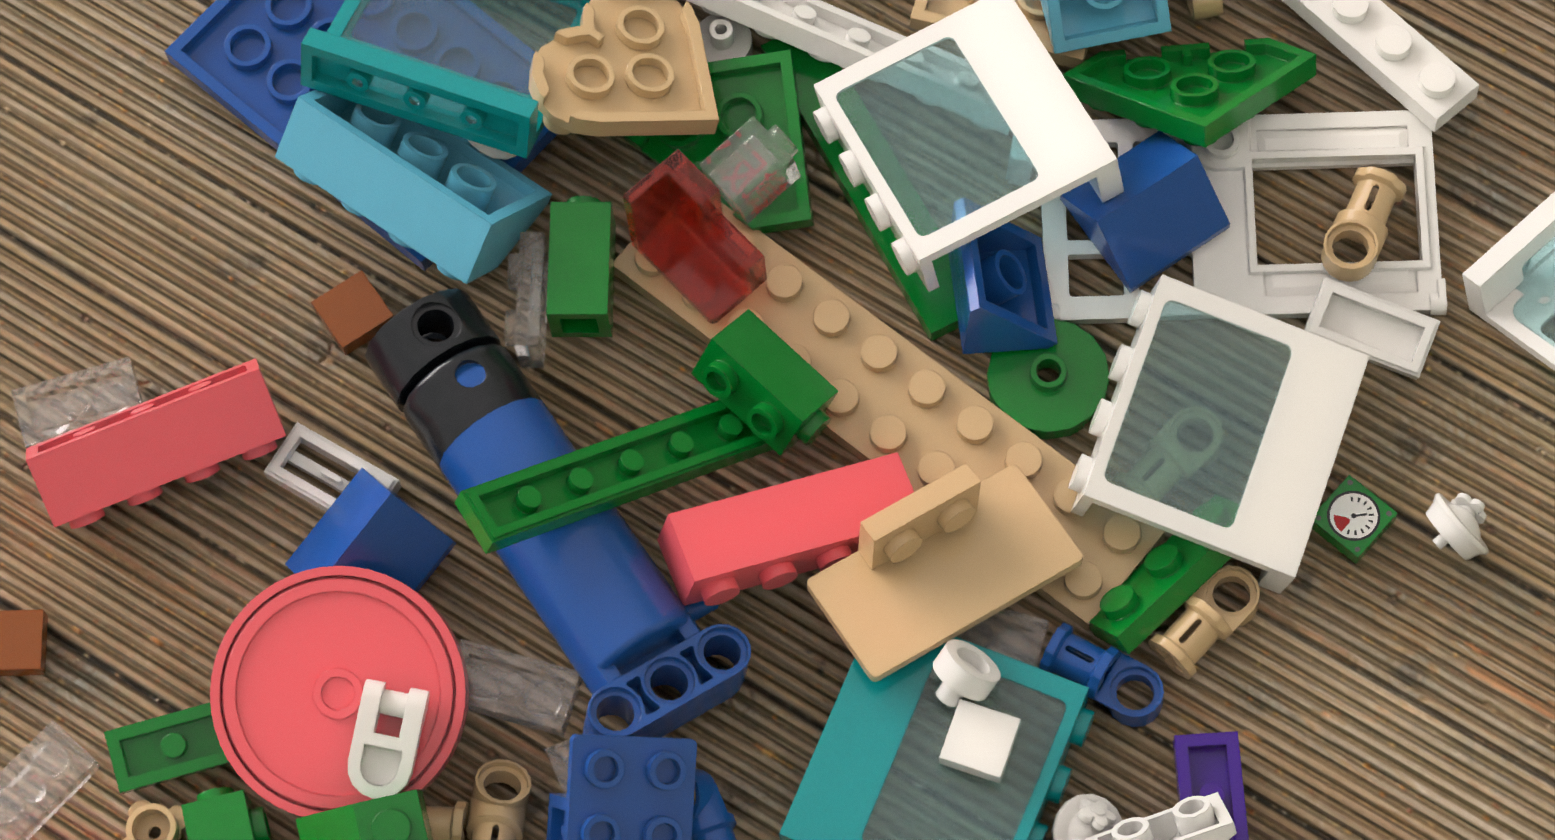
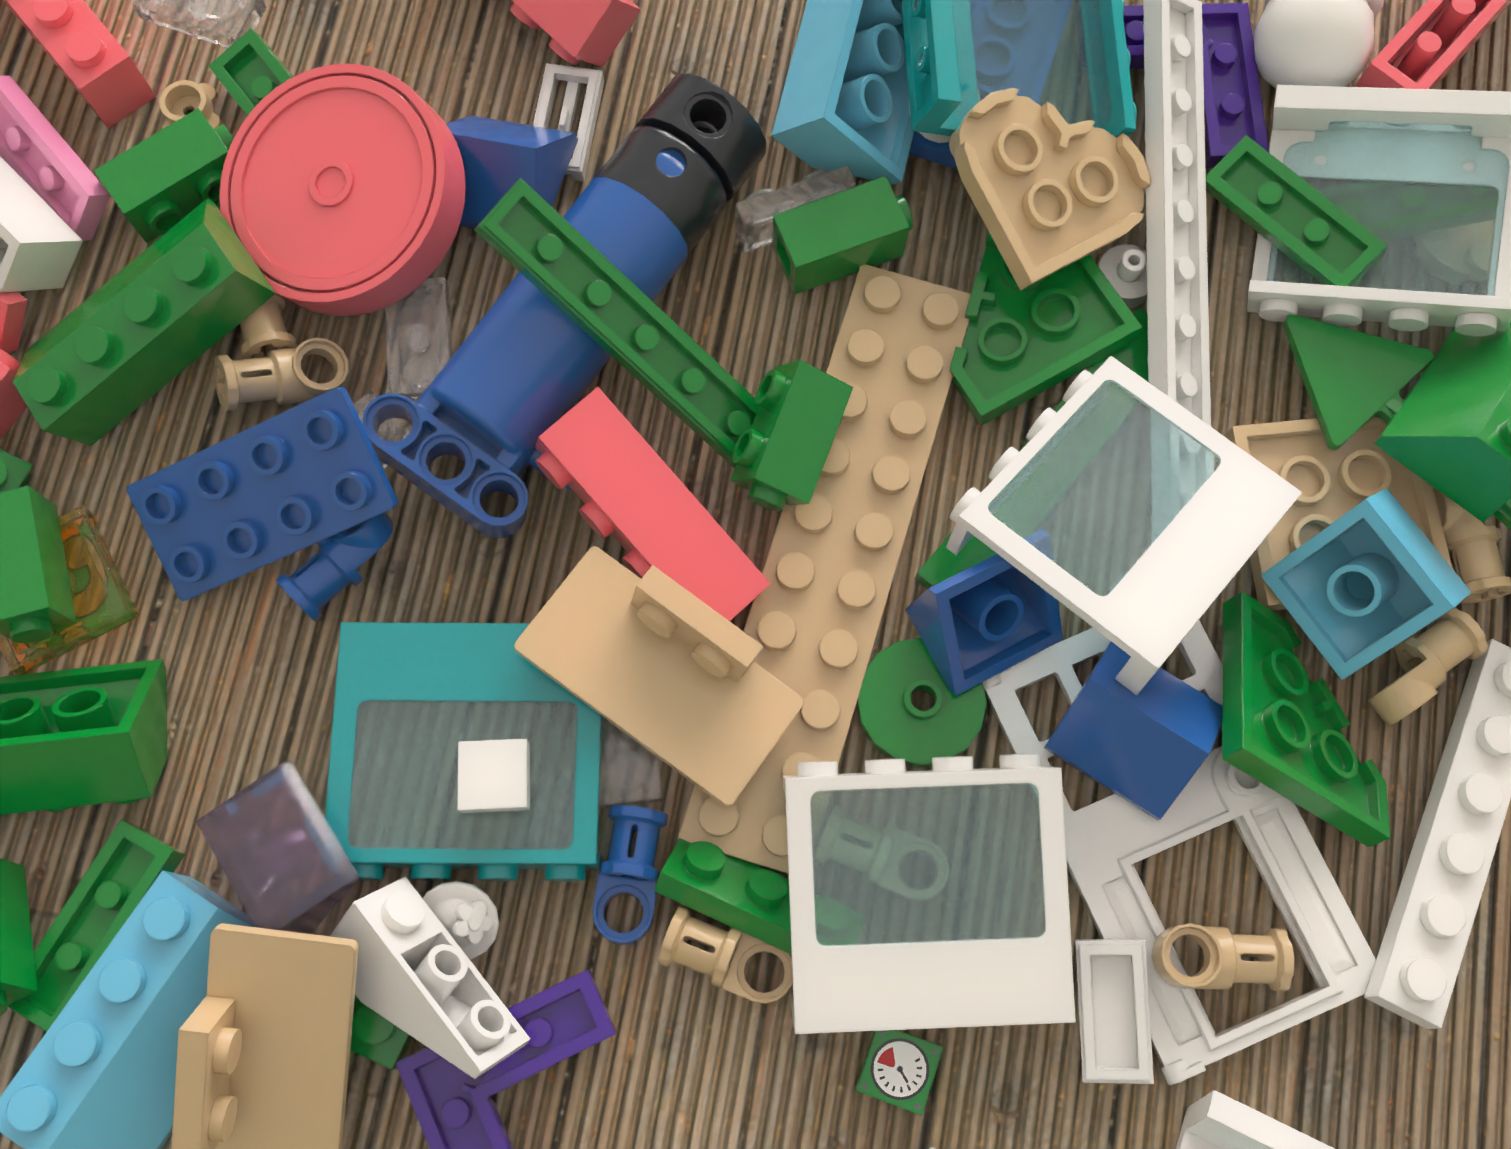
camera: 60 degrees right, 5 degrees up
(352, 312) = (730, 69): dark orange tile -> none
(380, 762) = (275, 238): white plate -> none
(683, 233) = (904, 306): clear red panel -> none
(752, 168) = (1000, 336): clear brick -> none
(964, 673) = (555, 733): white tile -> none

